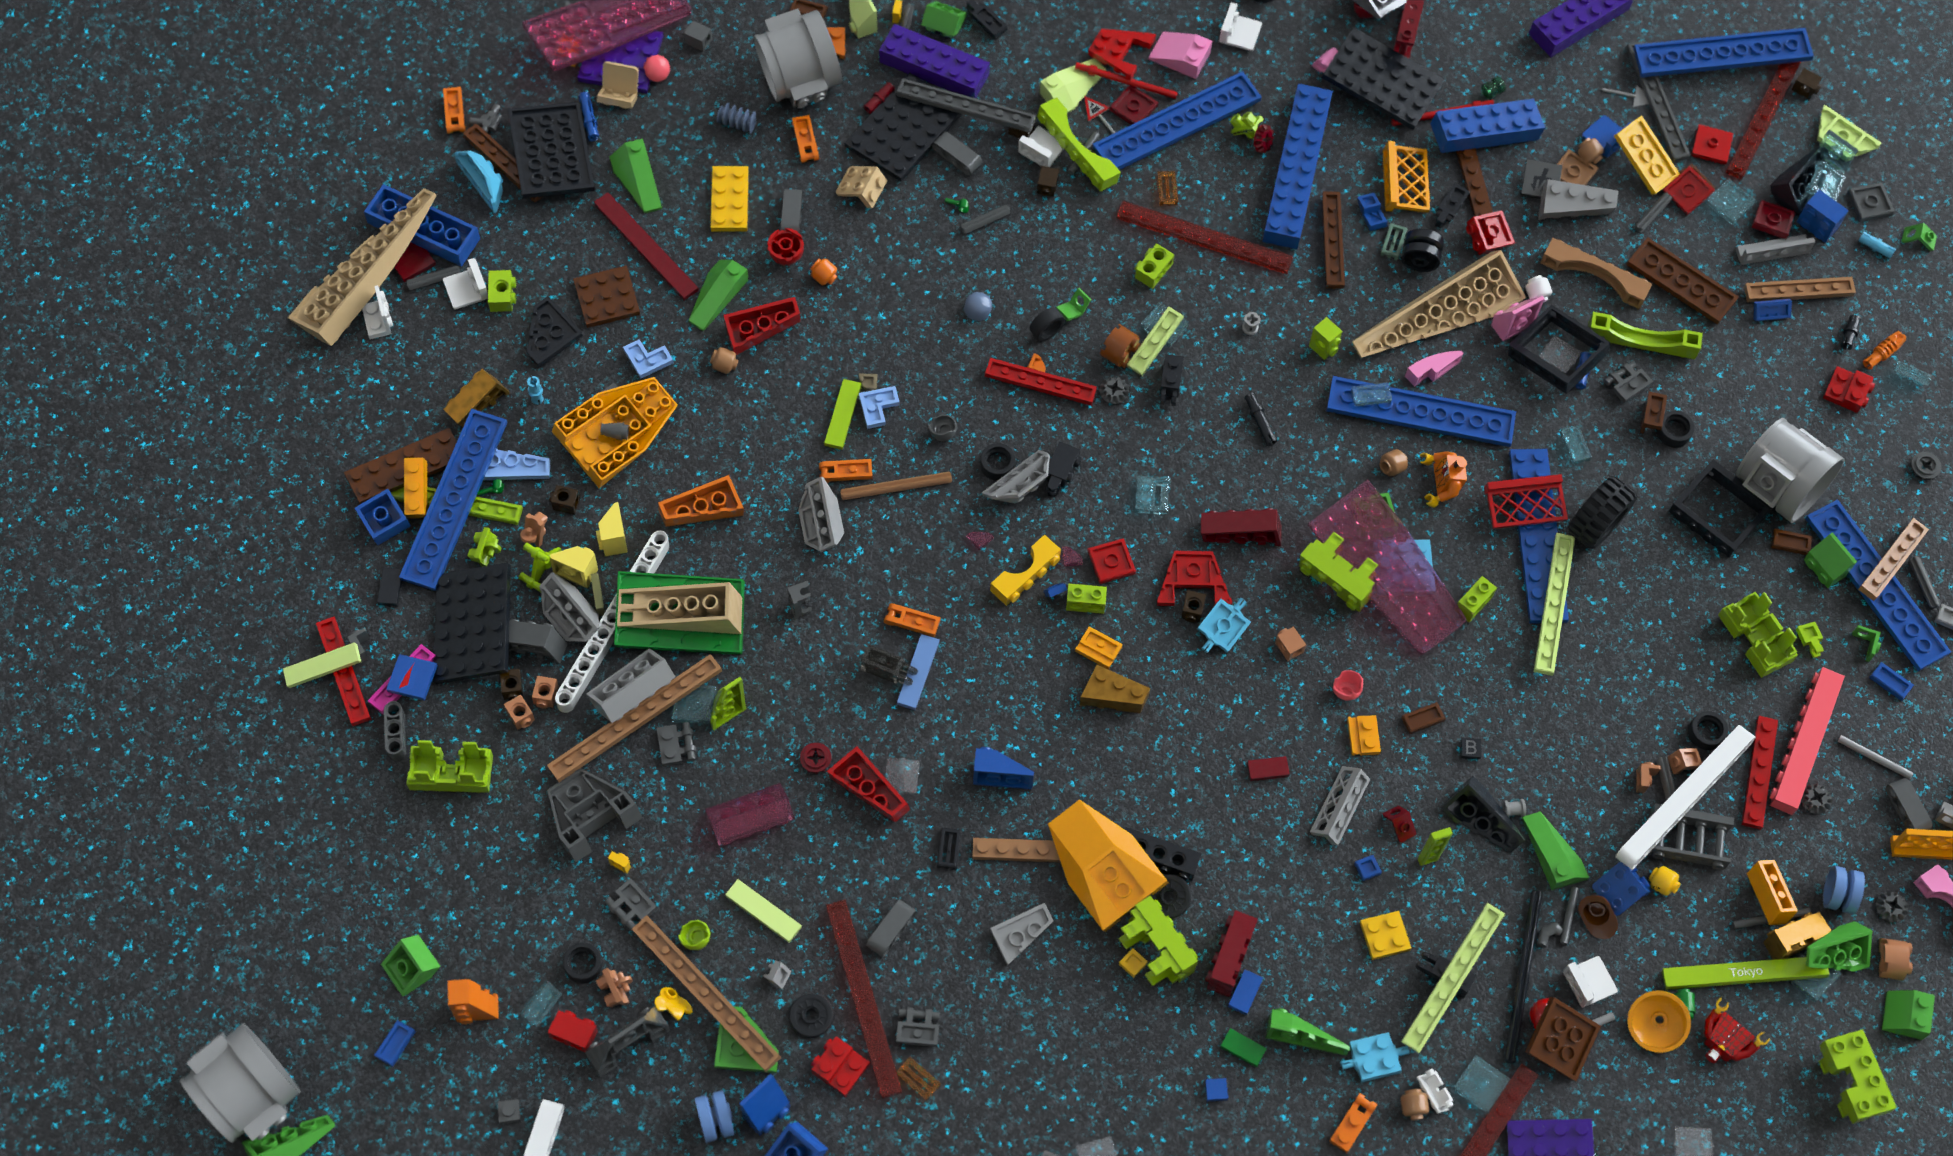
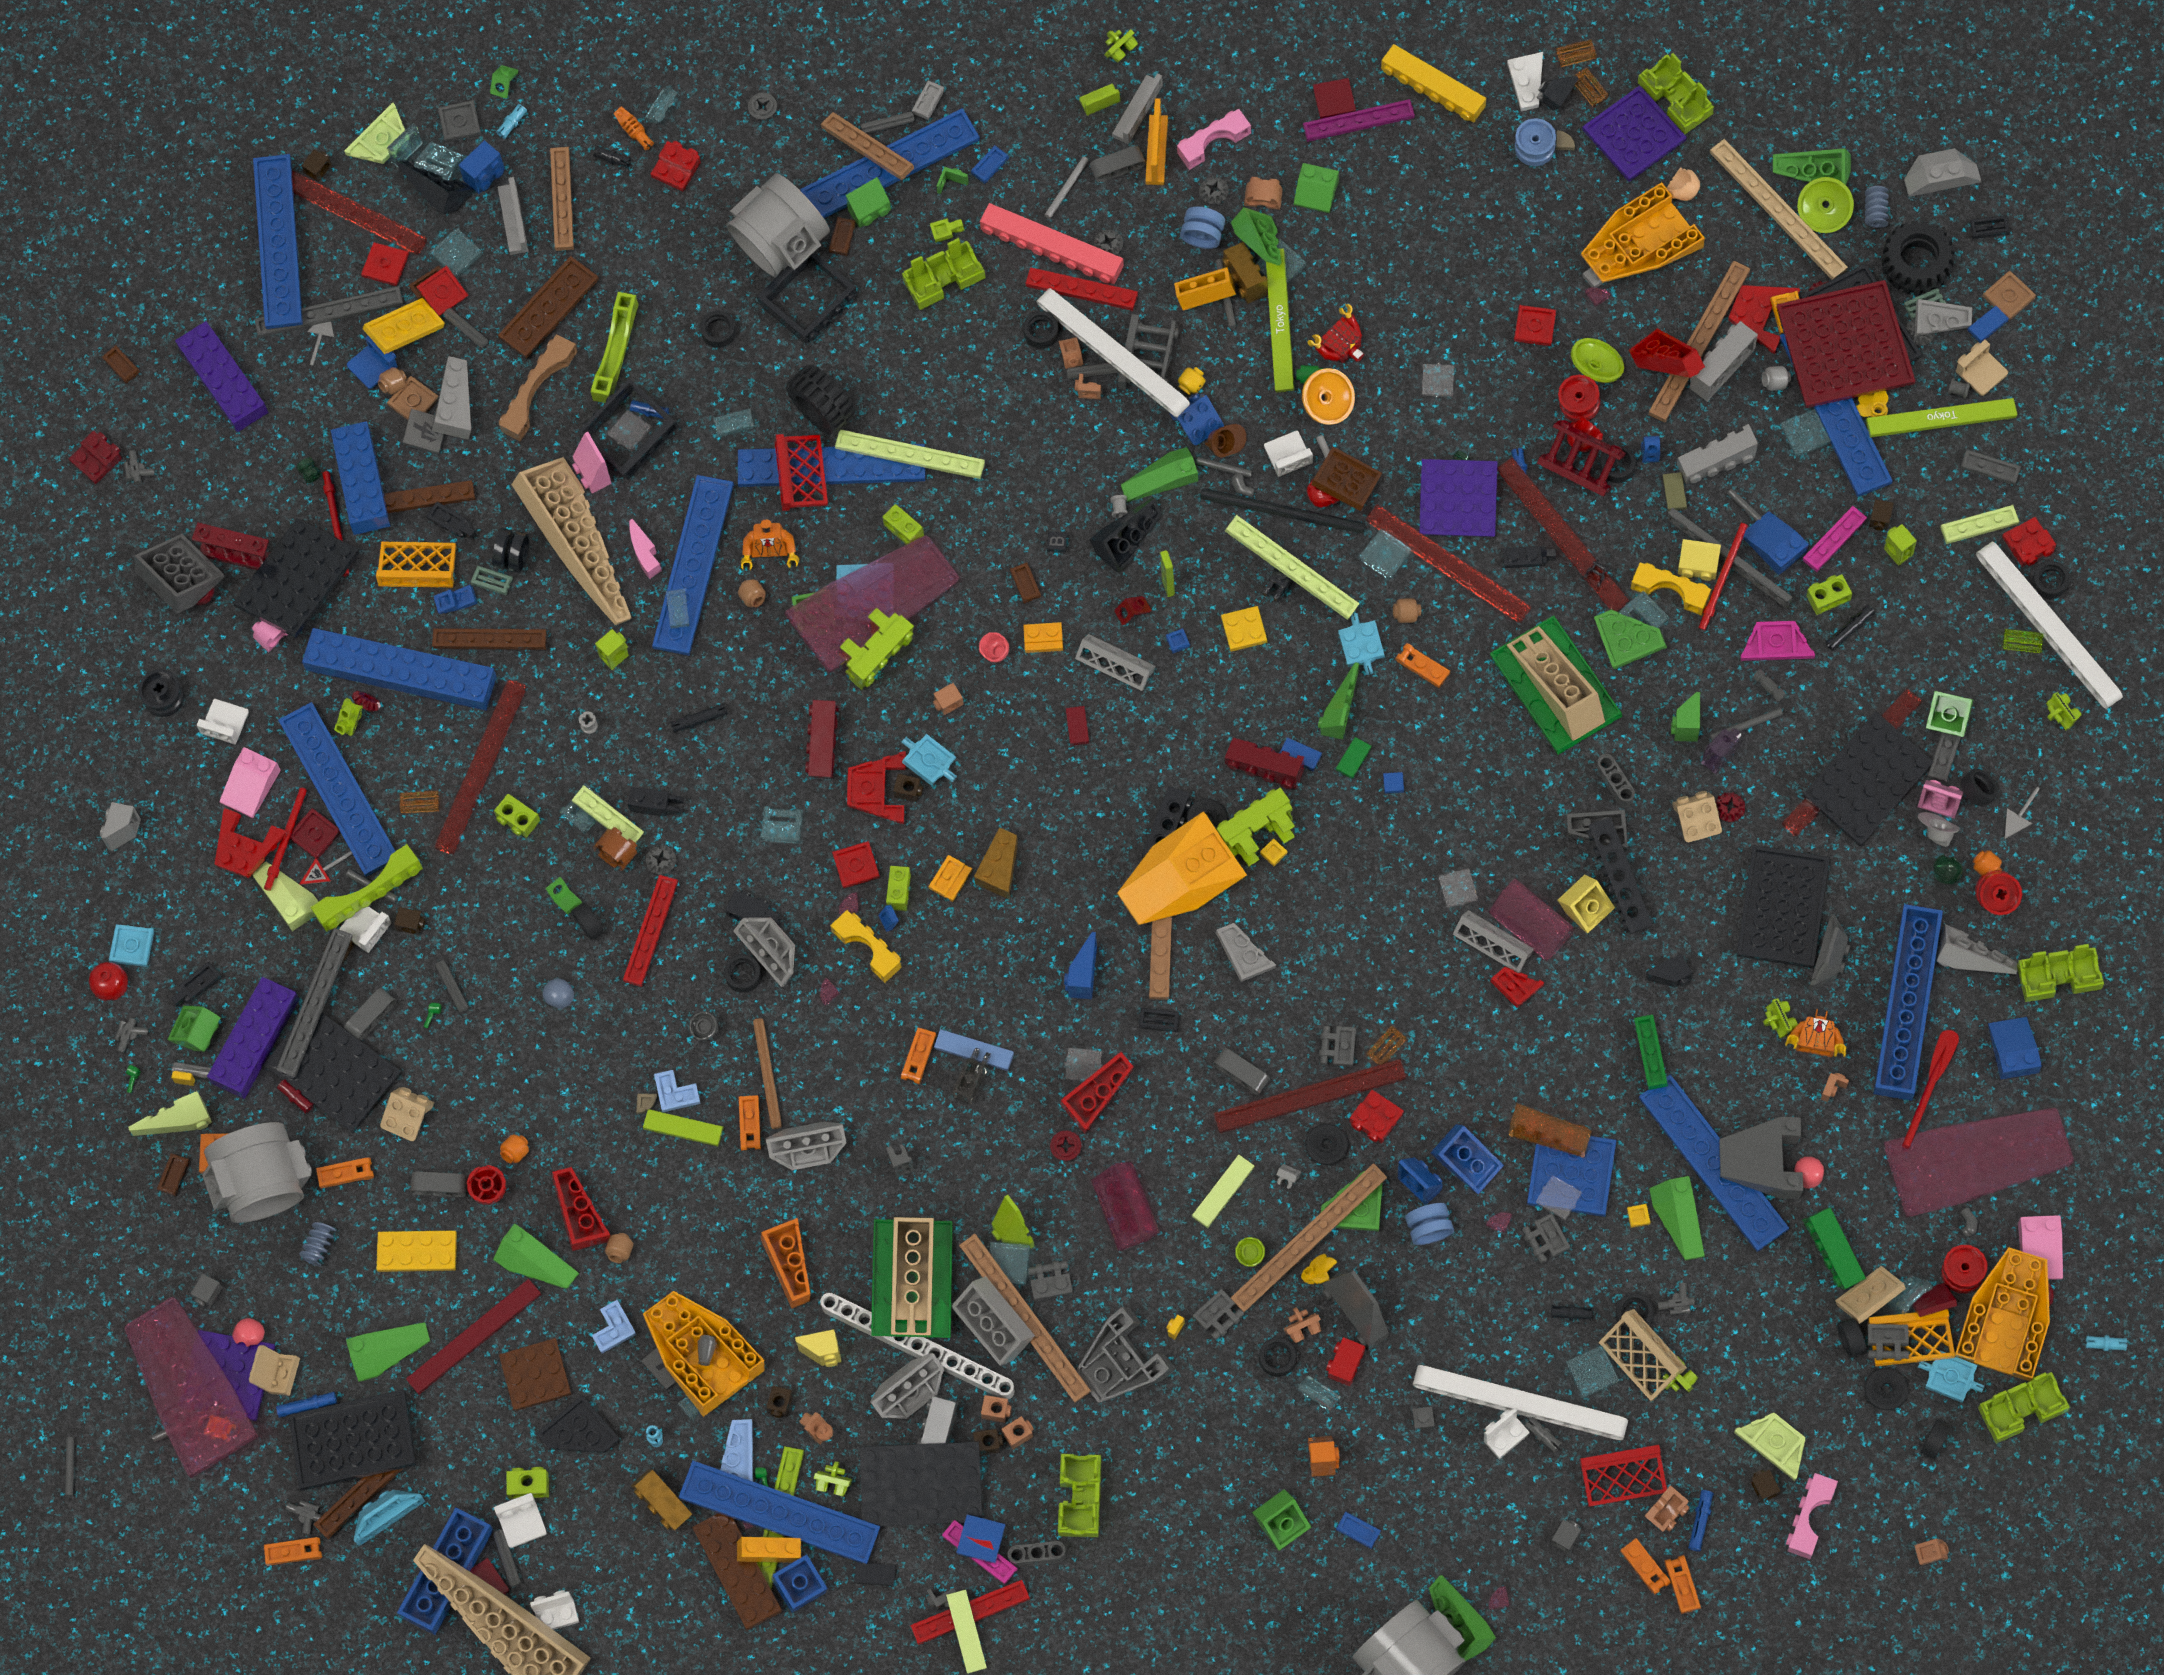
camera: 80 degrees left, 5 degrees up
(540, 564) = (851, 1415): lime axle -> none
(575, 565) = (860, 1380): light yellow slope -> none
(597, 594) = (887, 1363): olive tile -> none
(1036, 363) = (629, 935): orange tile -> none
(1439, 1099) = (1386, 596): white hinge -> none
(1489, 232) = (488, 485): red plate -> none
(1538, 287) = (555, 443): white head -> none
(1631, 386) = (667, 363): dark grey plate -> none
(1653, 411) = (702, 347): reddish brown panel -> none
(1772, 309) = (585, 226): blue plate -> none
(1773, 219) = (478, 214): dark red tile -> none
(1869, 1091) = (1364, 234): lime piece -> none

